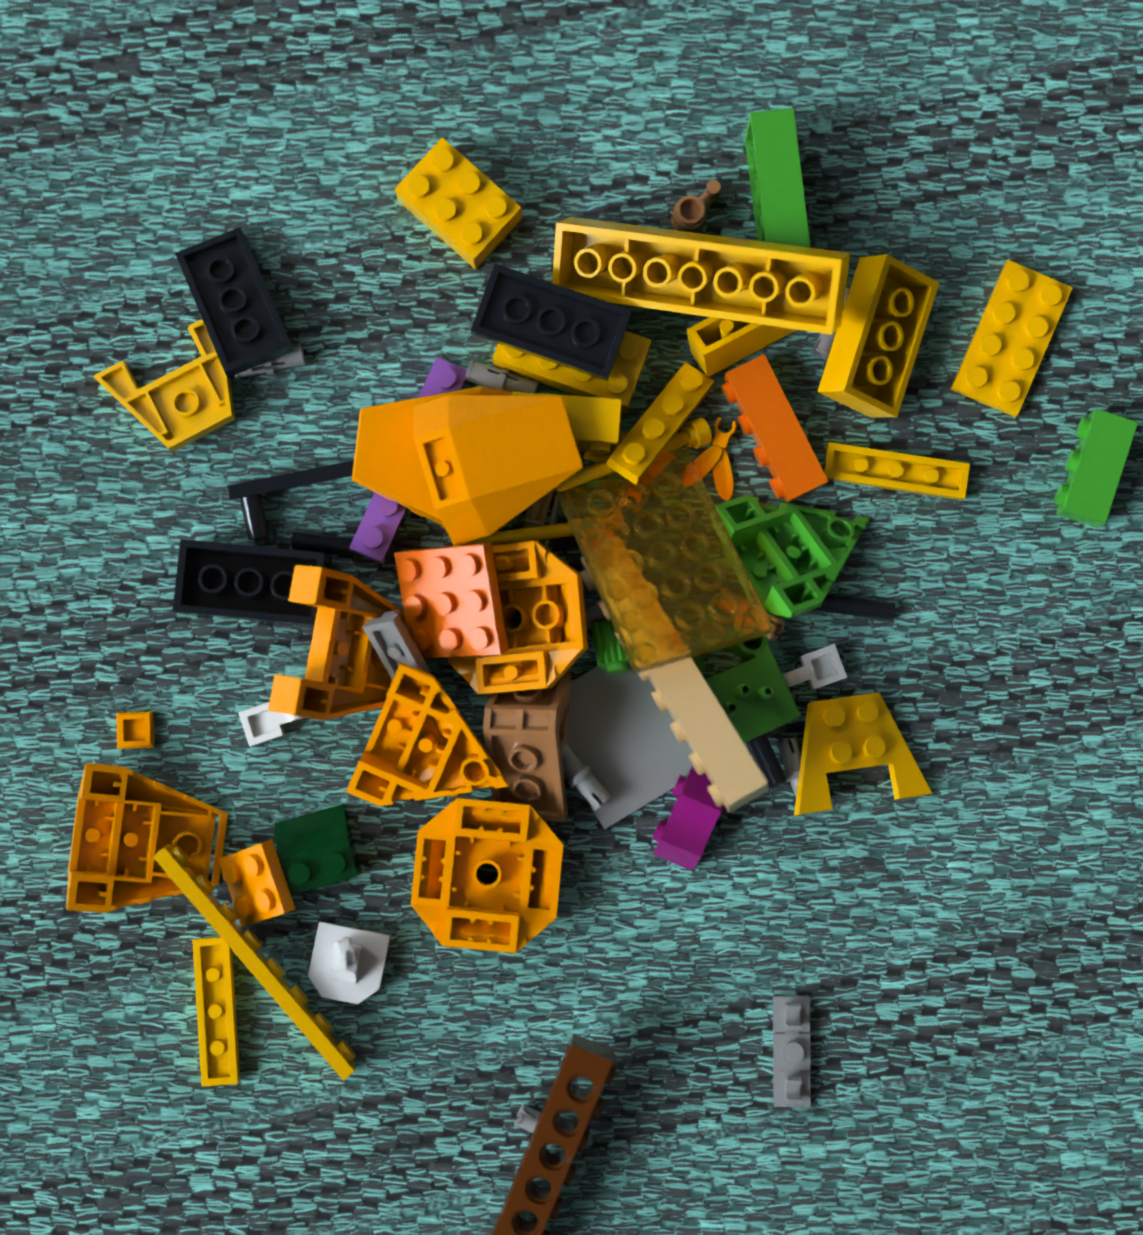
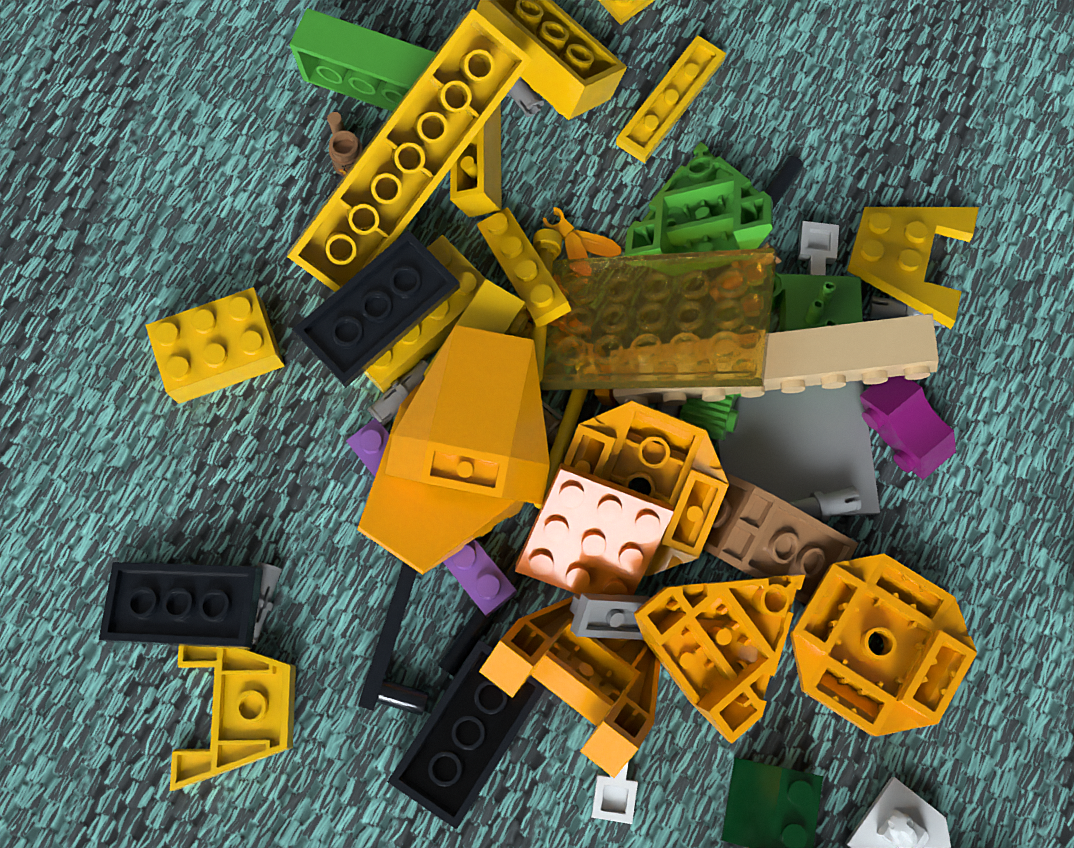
camera: 65 degrees left, 10 degrees down
(775, 430) = (580, 177): orange brick -> none

